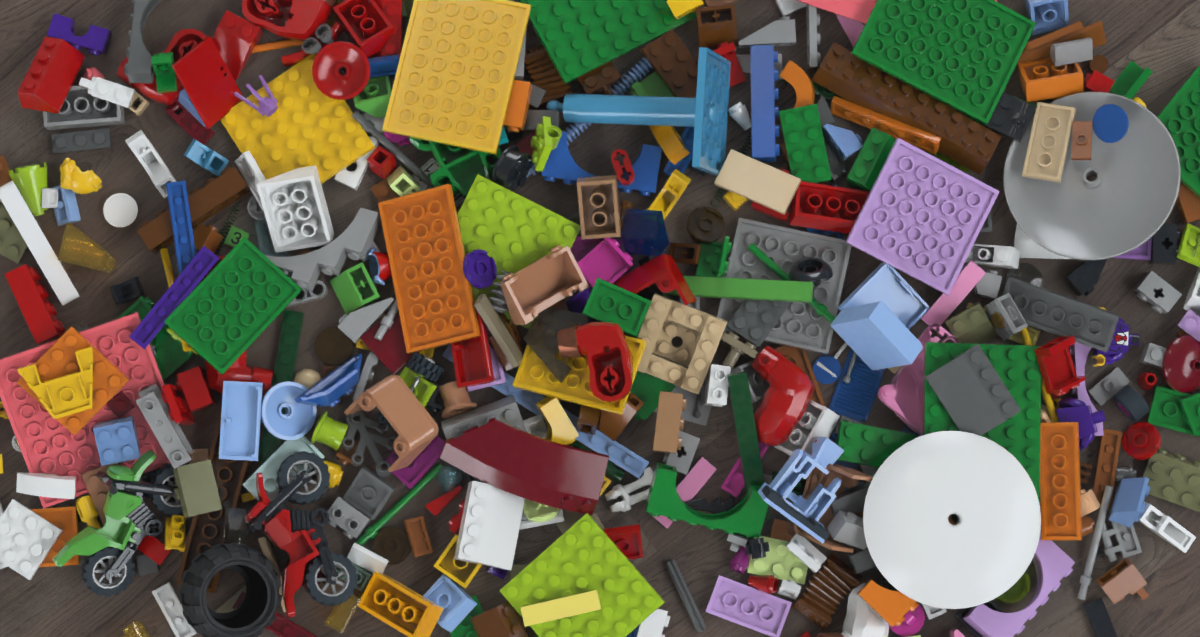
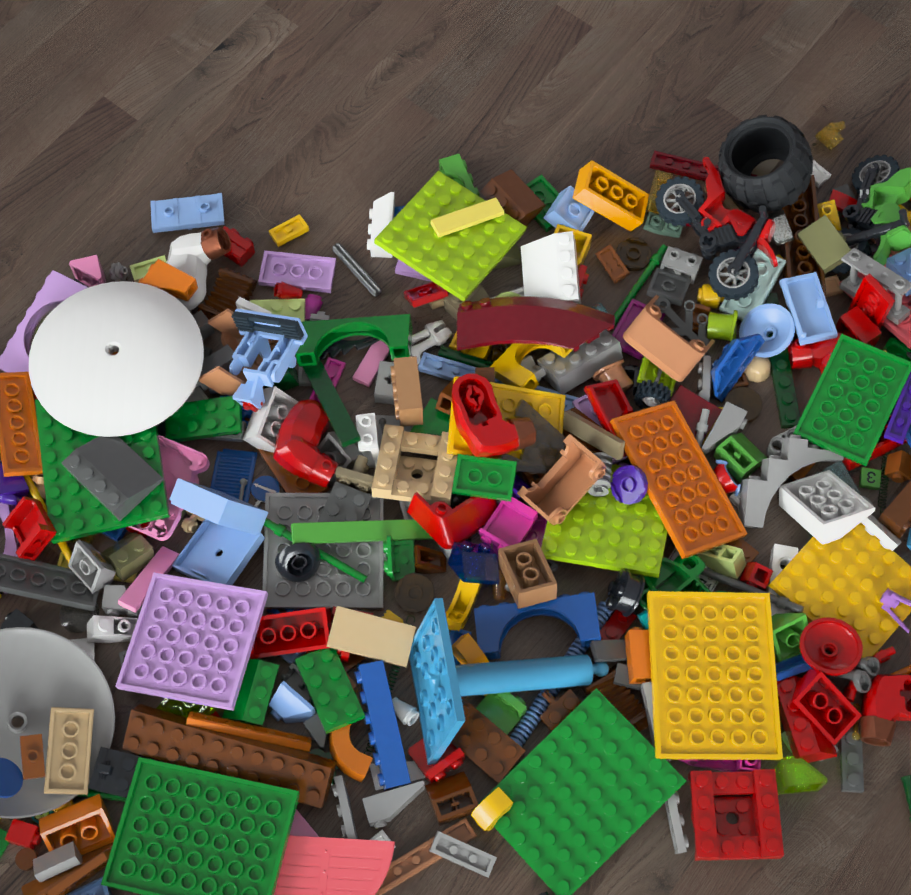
camera: 170 degrees right, 20 degrees down
(367, 559) = (651, 236): white tile -> none
(442, 502) = (601, 293): red slope -> none
(544, 141) = (600, 614): lime plate -> none
(627, 166) = (517, 617): red beam -> none
(757, 548) = (299, 310): black gear -> none
(789, 589) = (262, 292): white plate -> none
(848, 529) = (217, 337): light grey brick -> none

